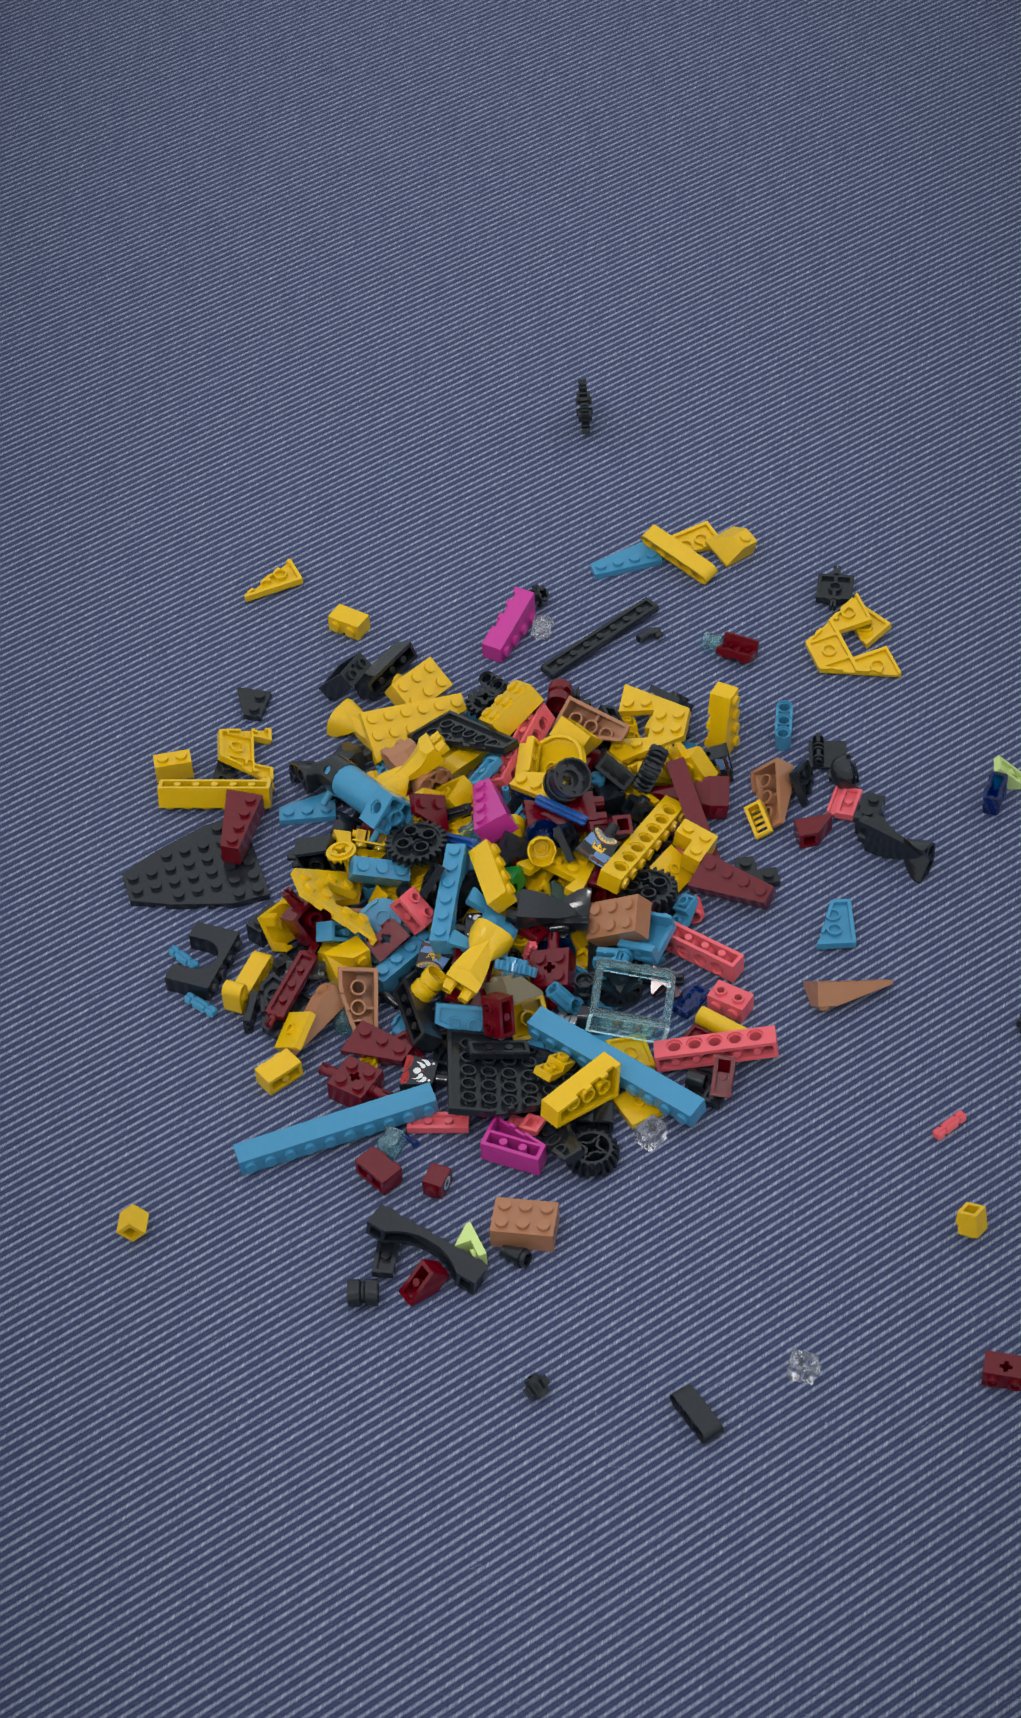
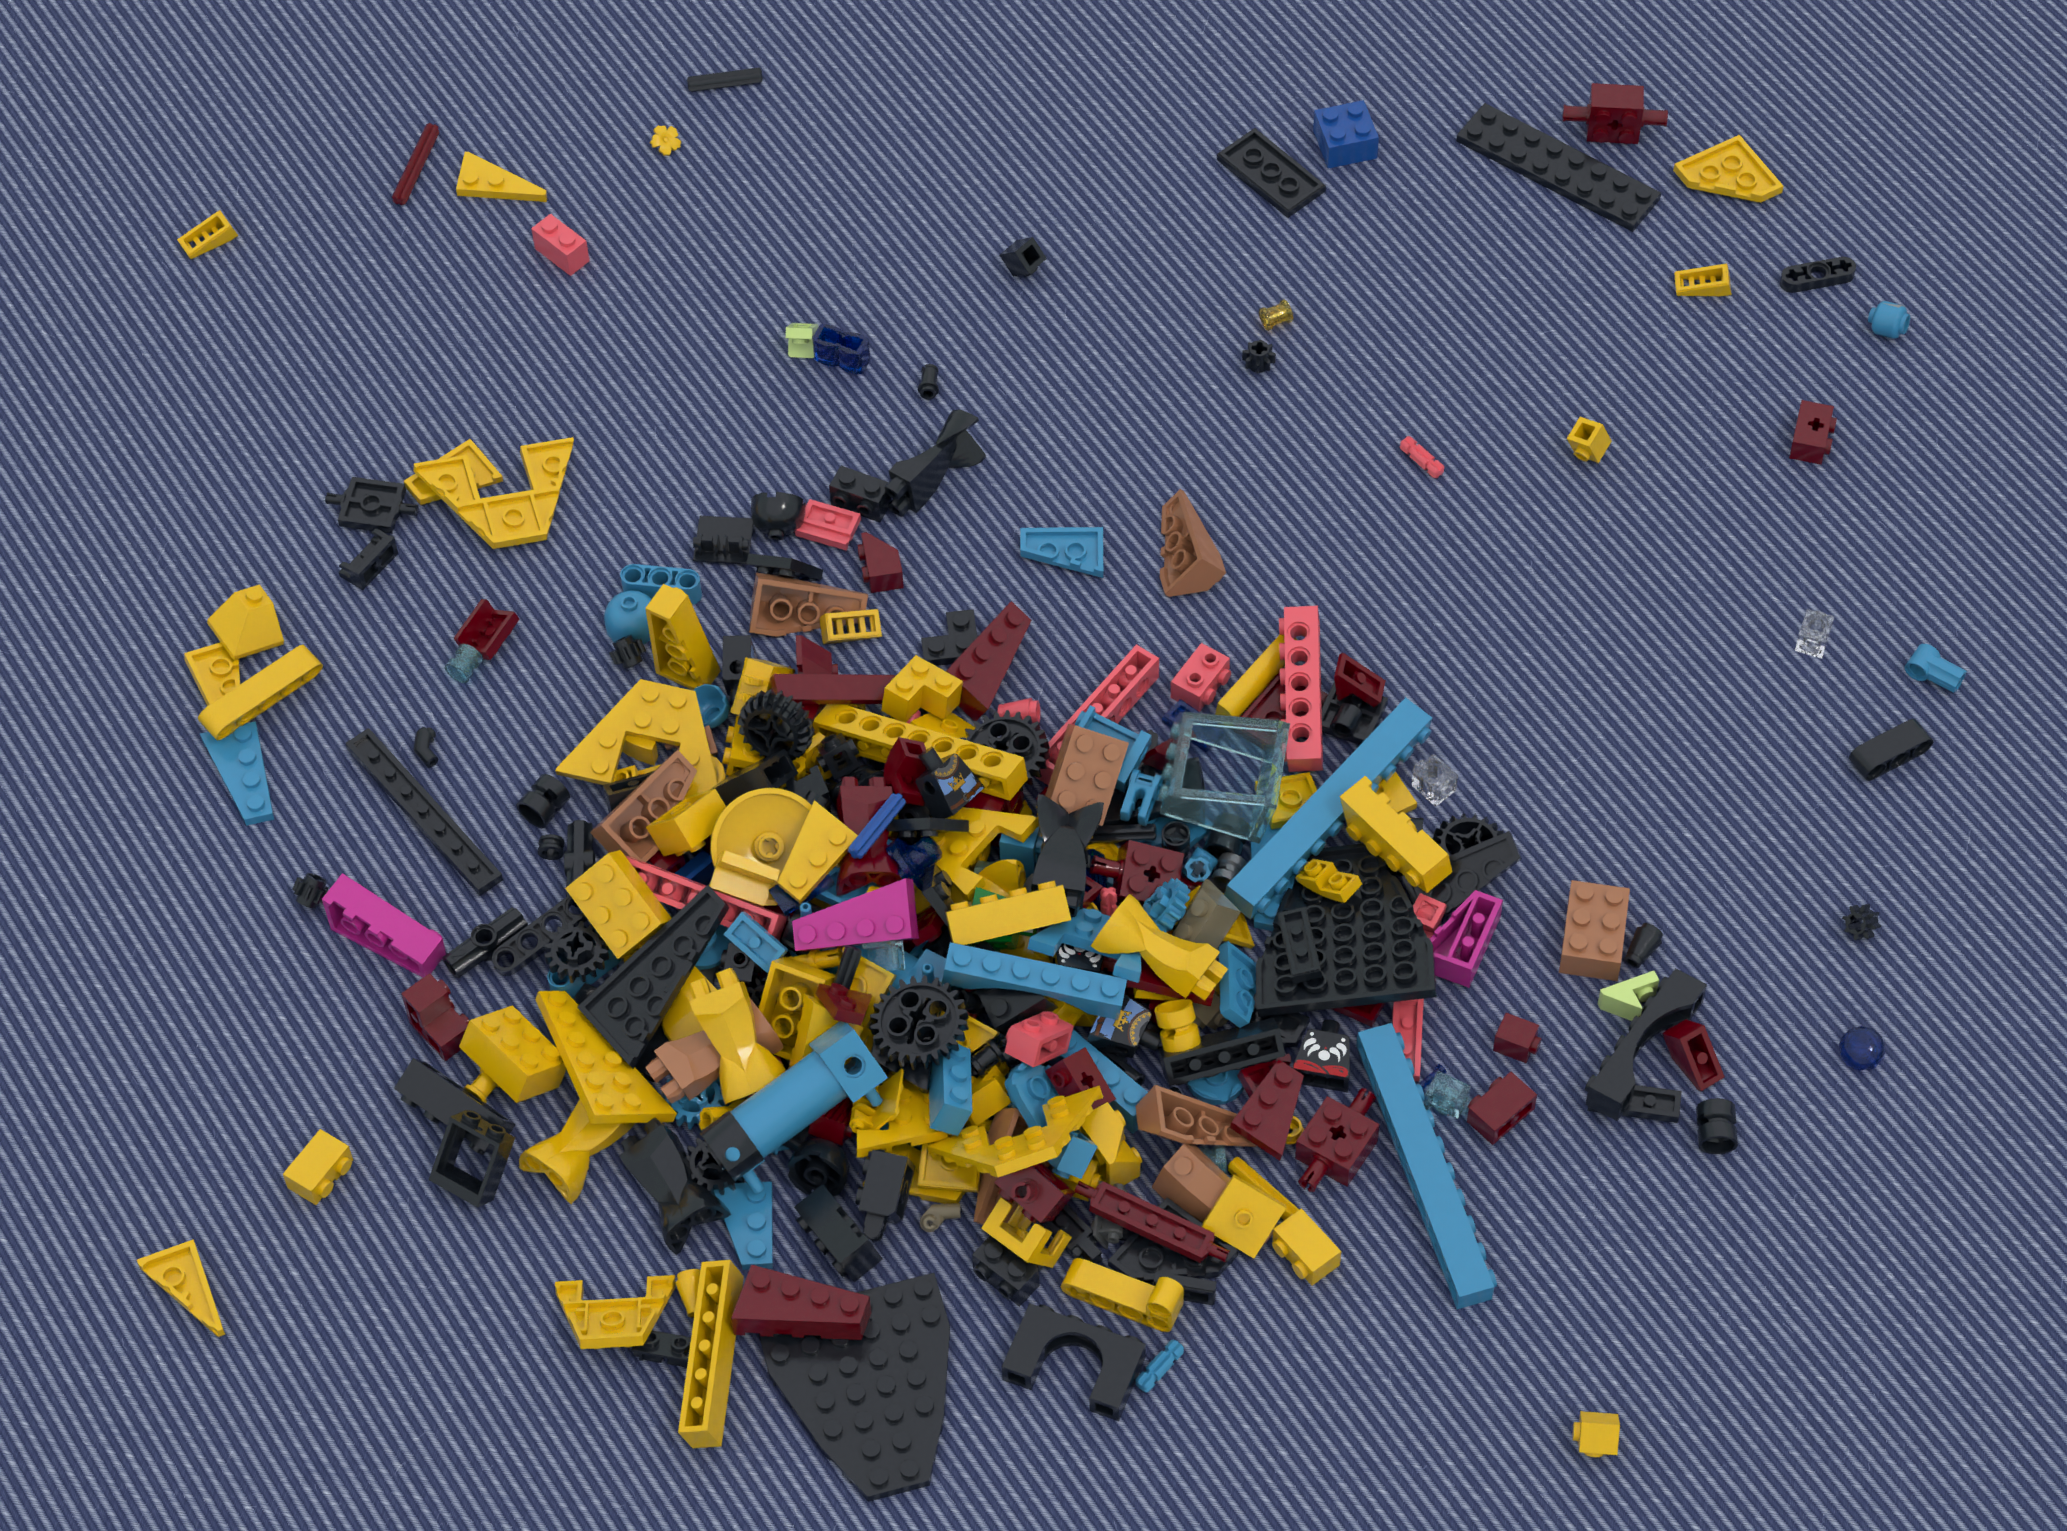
camera: 90 degrees left, 10 degrees up
(173, 765) = (629, 1425): yellow brick -> none
(183, 957) = (1059, 1394): dark azure axle -> none
(253, 703) = (485, 1313): black wing -> none
(282, 840) = (837, 1234): none -> black wedge
(324, 1051) = (1244, 1171): none -> yellow axle
(336, 851) = (910, 1122): yellow gear -> none
(430, 879) = (997, 999): black wing -> none
(431, 1387) = (1862, 1048): none -> clear blue hair
(450, 651) = (434, 1015): none -> dark red brick
(458, 839) = (919, 960): blue axle -> none
(498, 1015) = (1251, 933): dark red brick -> none
(500, 668) = (472, 952): none -> black piece
(541, 627) = (385, 886): clear bracket -> none
(541, 851) = (955, 857): yellow hair -> none
(558, 693) = (573, 851): dark red wheel -> none
(574, 773) = (845, 798): black wheel -> none
(607, 686) = (541, 803): none -> black wheel
(674, 696) = (595, 709): black wing -> none
(685, 909) = (1031, 706): dark azure slope -> none
(756, 715) = (627, 616): none -> dark azure cylinder
(778, 1442) = (1928, 664): none -> dark azure piece
(790, 594) = (370, 560): none -> black hinge
(978, 845) = (928, 387): none -> black pin

